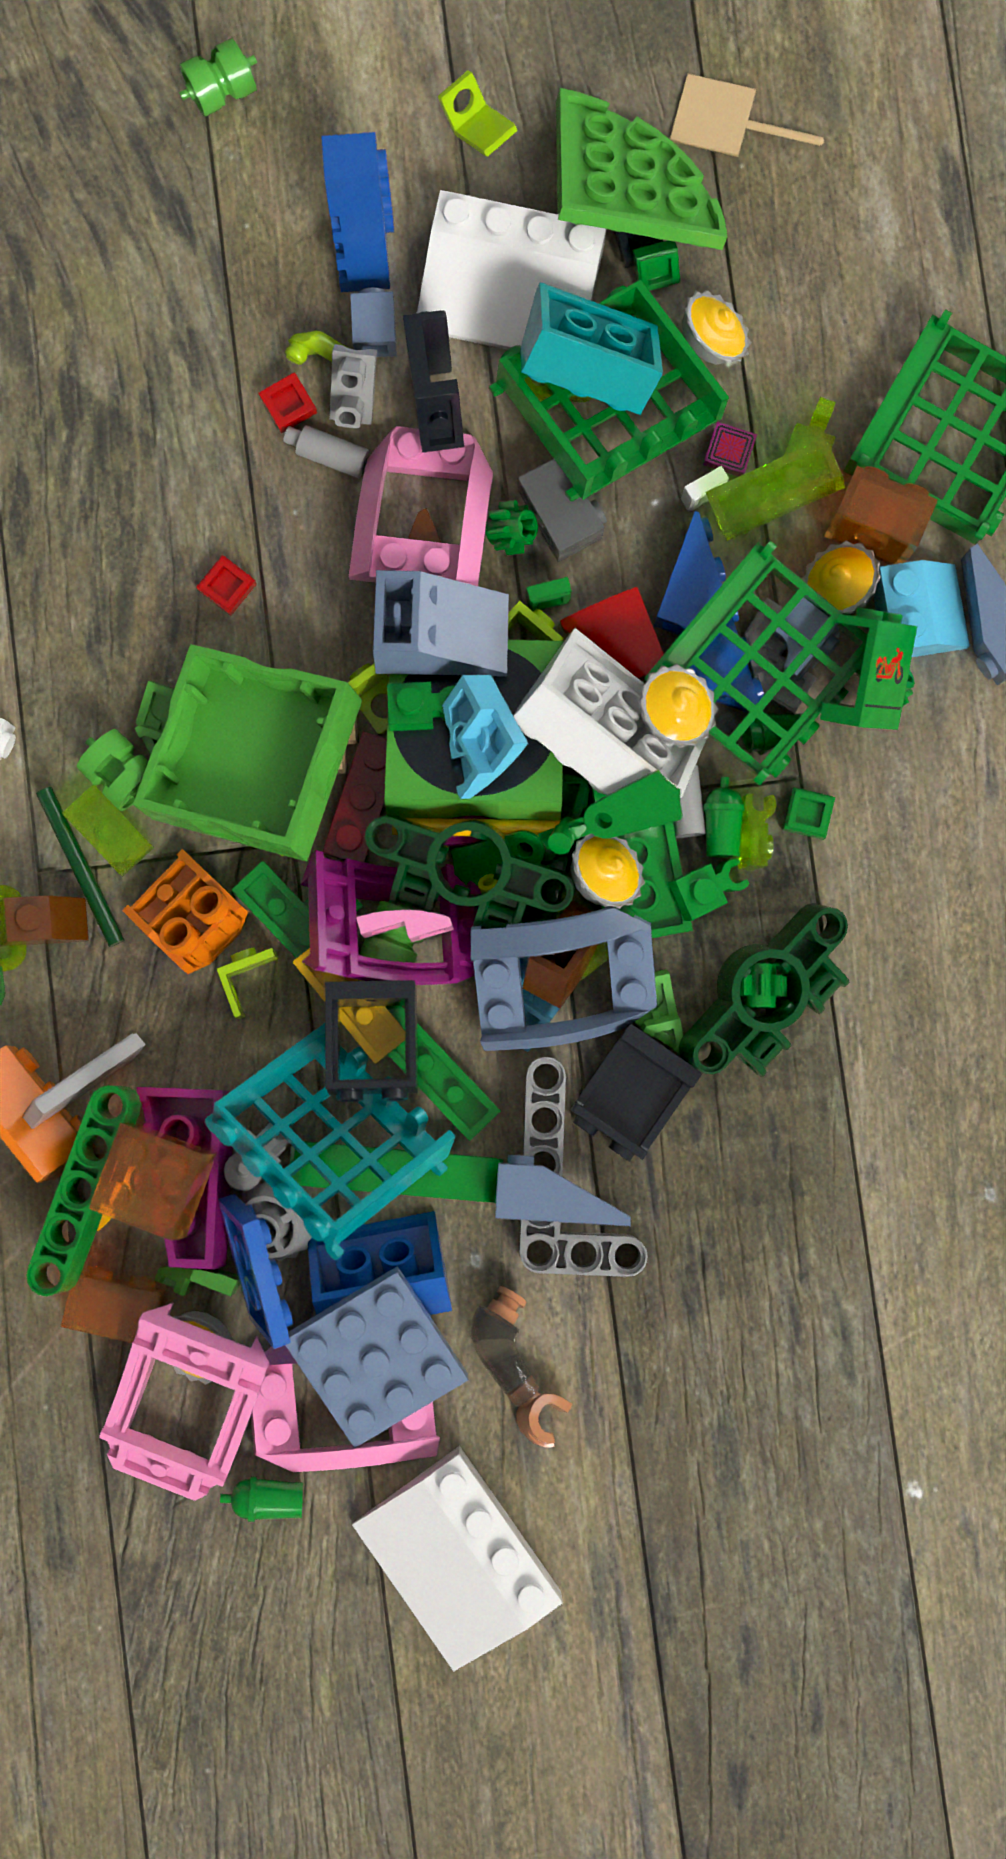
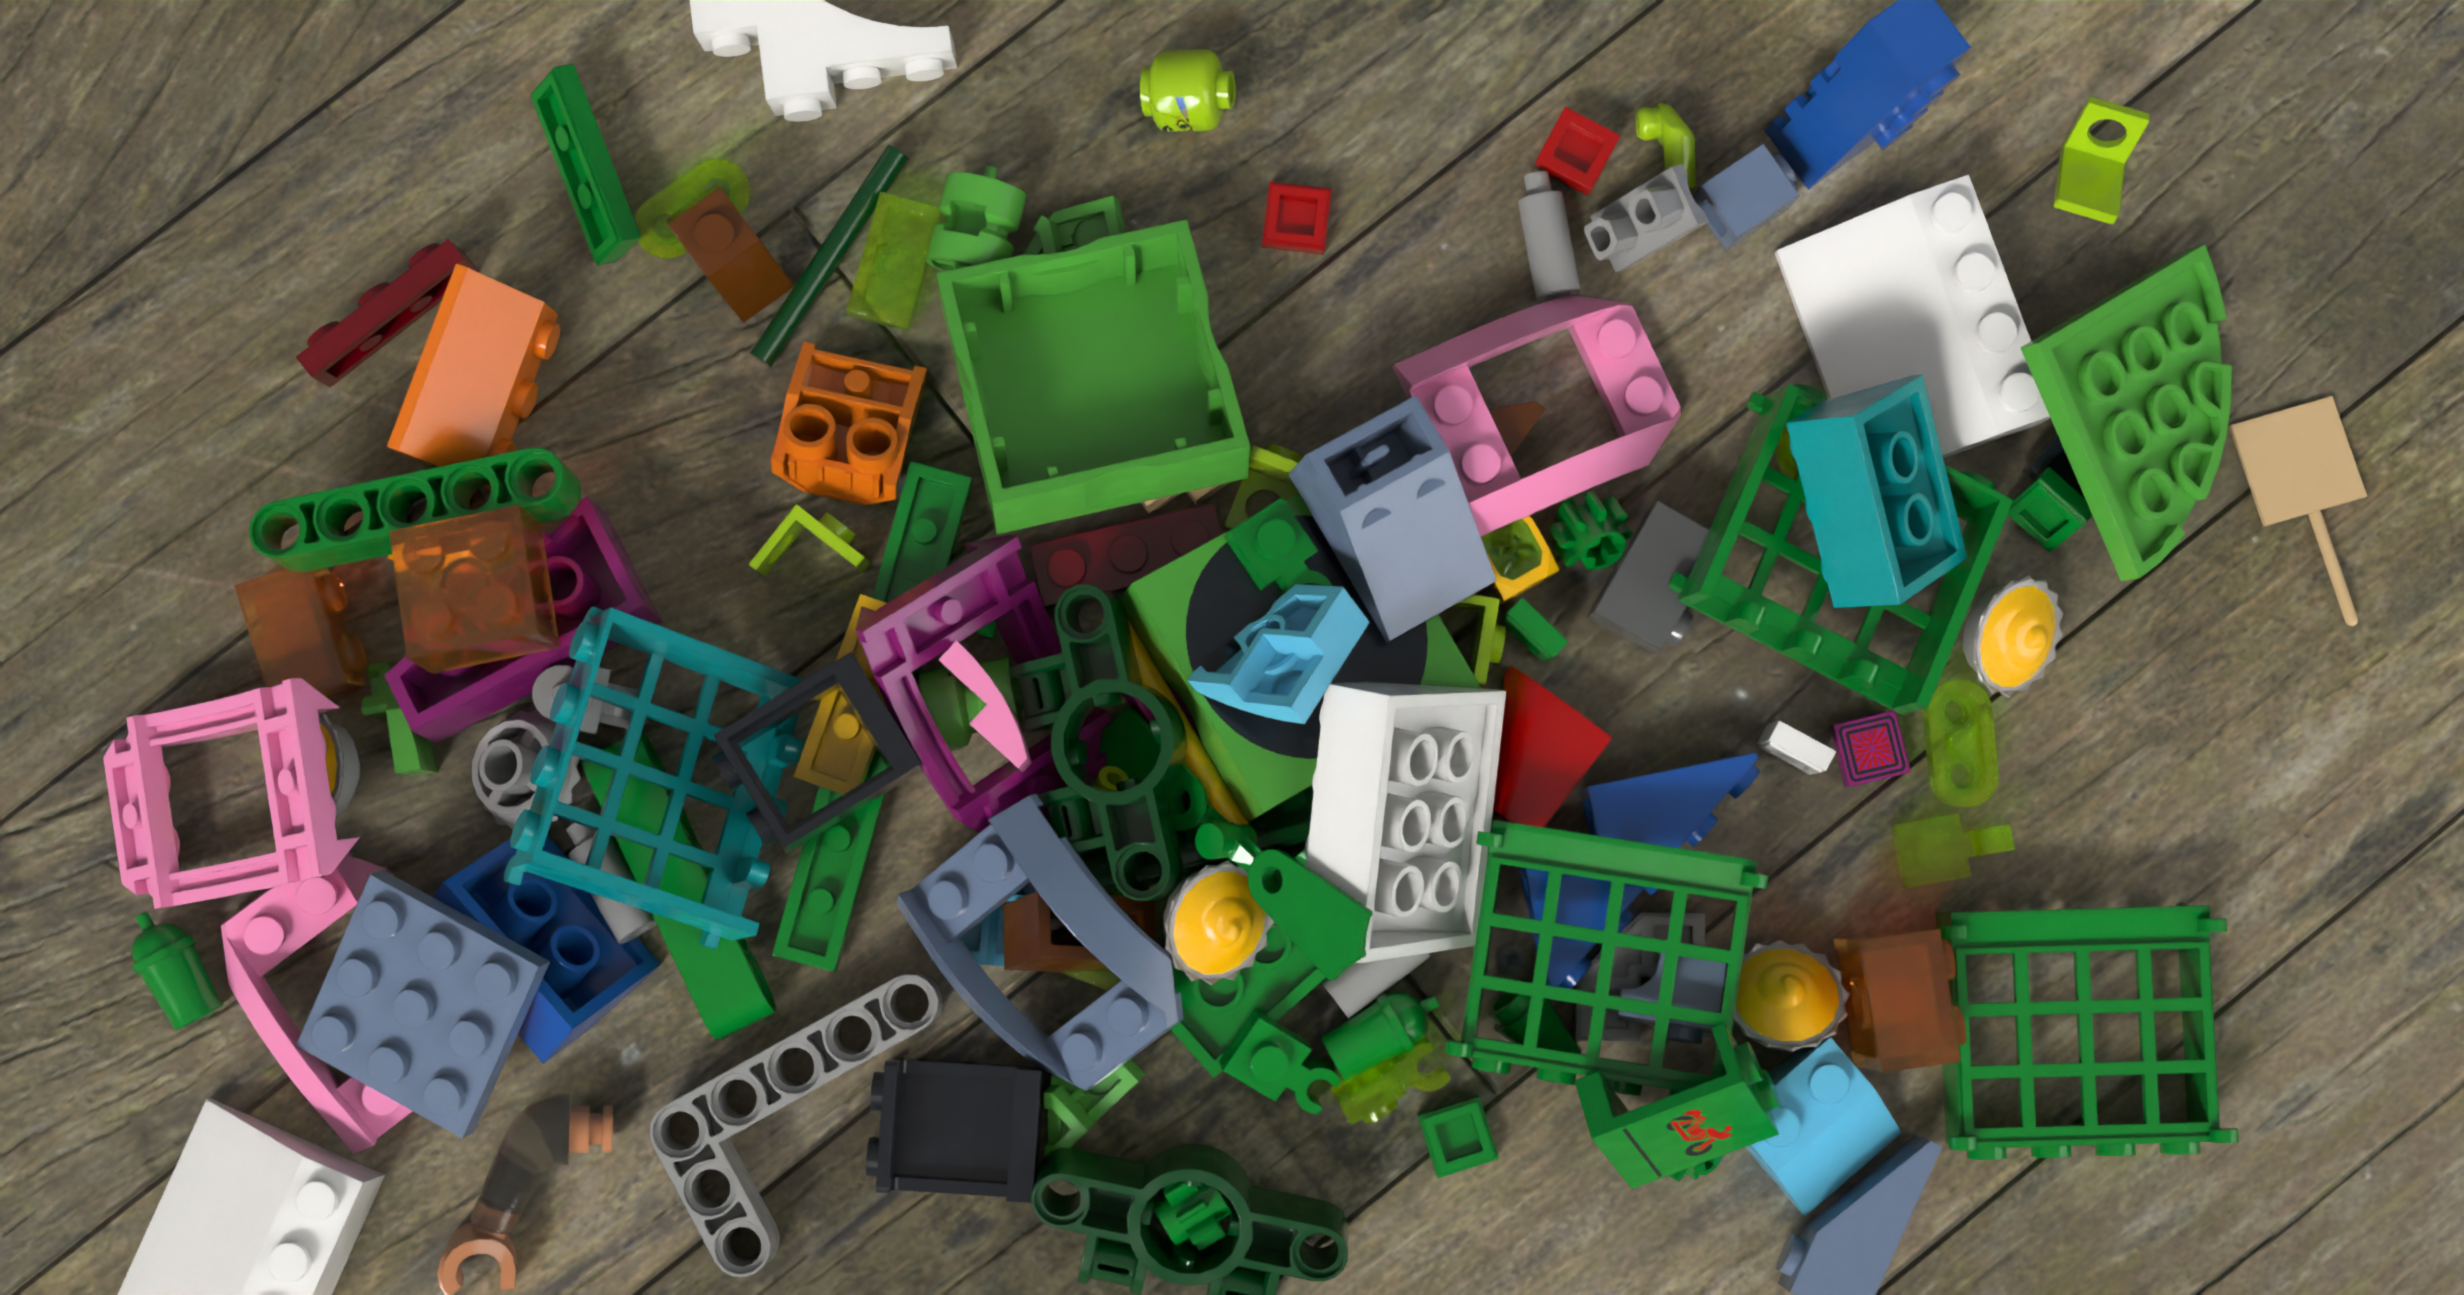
camera: 60 degrees right, 0 degrees up
(83, 1080) = (555, 425): light grey tile -> none
(113, 601) = (1186, 90): none -> lime head
(255, 1271) = (440, 788): blue plate -> none
(394, 1214) = (623, 920): none -> light grey cylinder
(439, 401) = (1682, 342): black panel -> none
(502, 575) = (1518, 558): none -> rock
(542, 1195) = (751, 1095): sand blue slope -> none
(677, 706) = (1478, 886): yellow piece -> none
(759, 395) = (1967, 744): none -> clear neon green plate
(776, 489) = (1848, 840): clear neon green brick -> none

